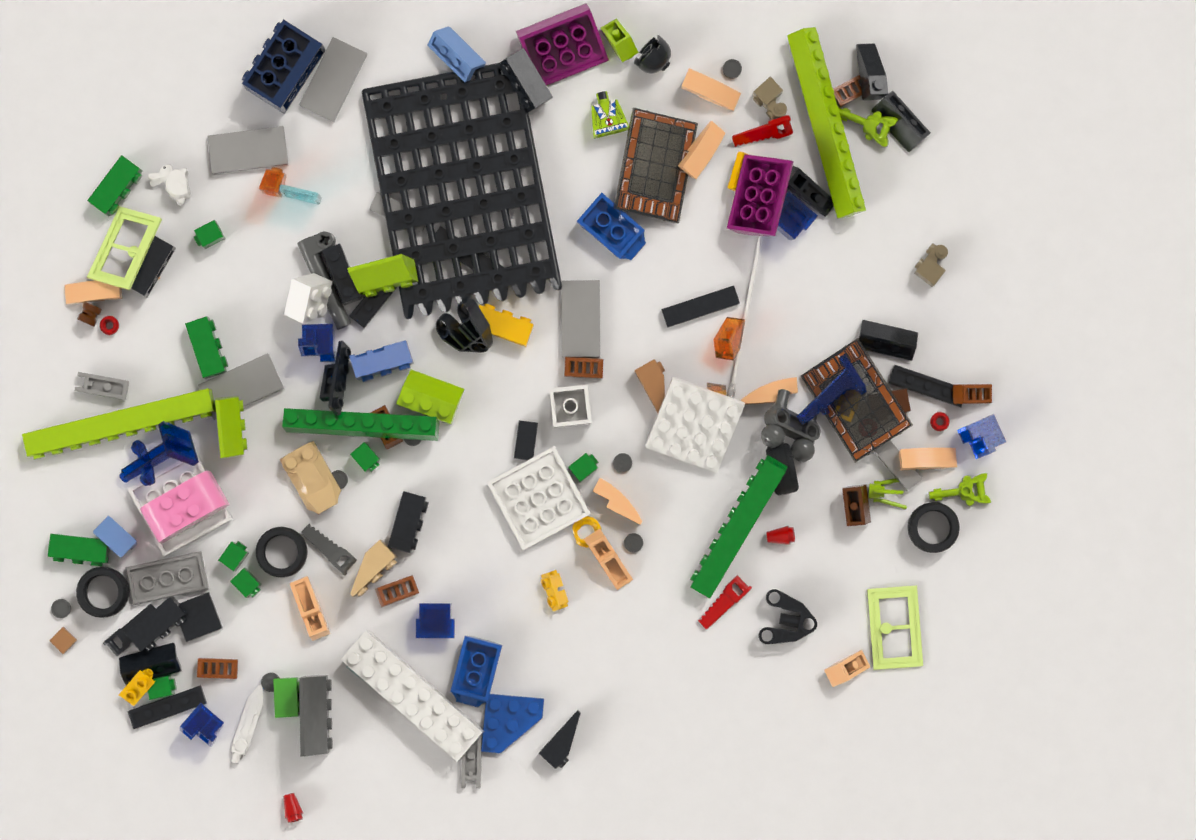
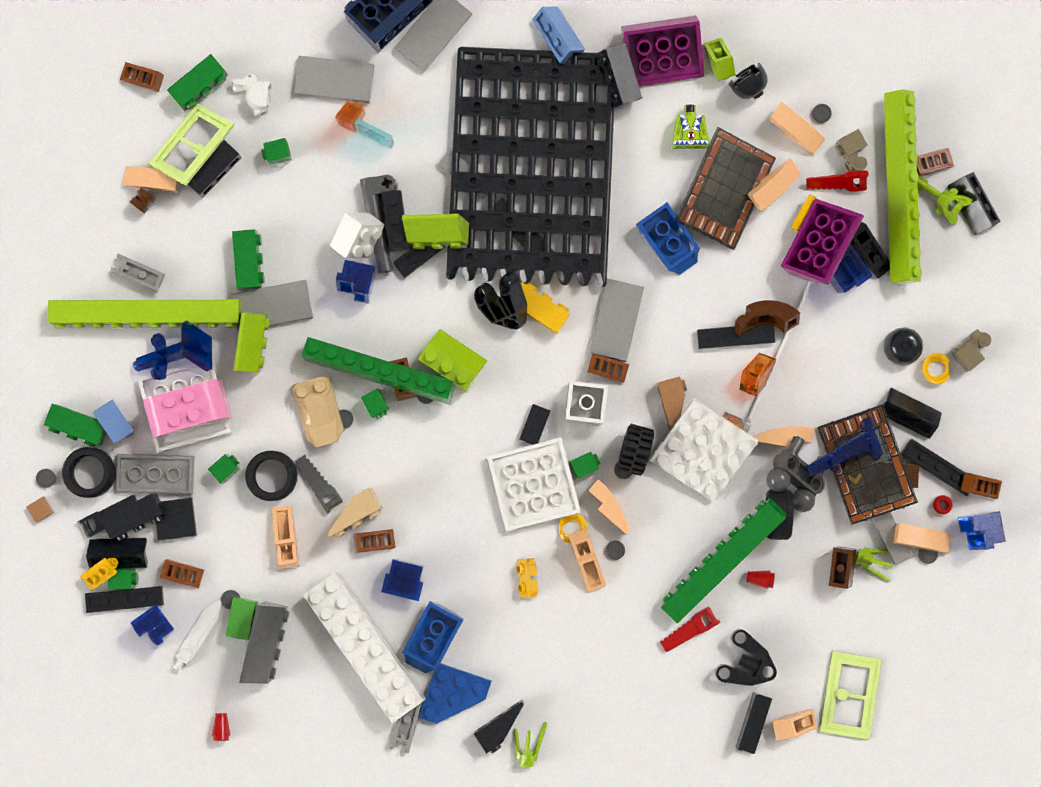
camera: 20 degrees right, 0 degrees up
(71, 193) = (153, 79): none -> dark orange slope
(103, 325) = (153, 215): red plate -> none
(246, 583) = (230, 498): green brick -> none
(335, 379) = (364, 320): black bracket -> none
(381, 361) = (413, 314): wedge -> none
(408, 522) = (401, 477): black brick -> none
(595, 764) = (526, 756): none -> lime plant
(629, 440) = (635, 449): none -> black tyre
(726, 276) = (767, 313): none -> reddish brown arch
(807, 677) = (753, 723): none -> black panel
(865, 277) = (903, 346): none -> black cylinder
(871, 72) = (957, 149): black slope -> none
(902, 279) = (937, 357): none -> yellow piece
(937, 475) = (927, 556): none -> dark grey piece
(953, 531) = (932, 607): black tyre -> none
(965, 491) = (951, 578): lime piece -> none

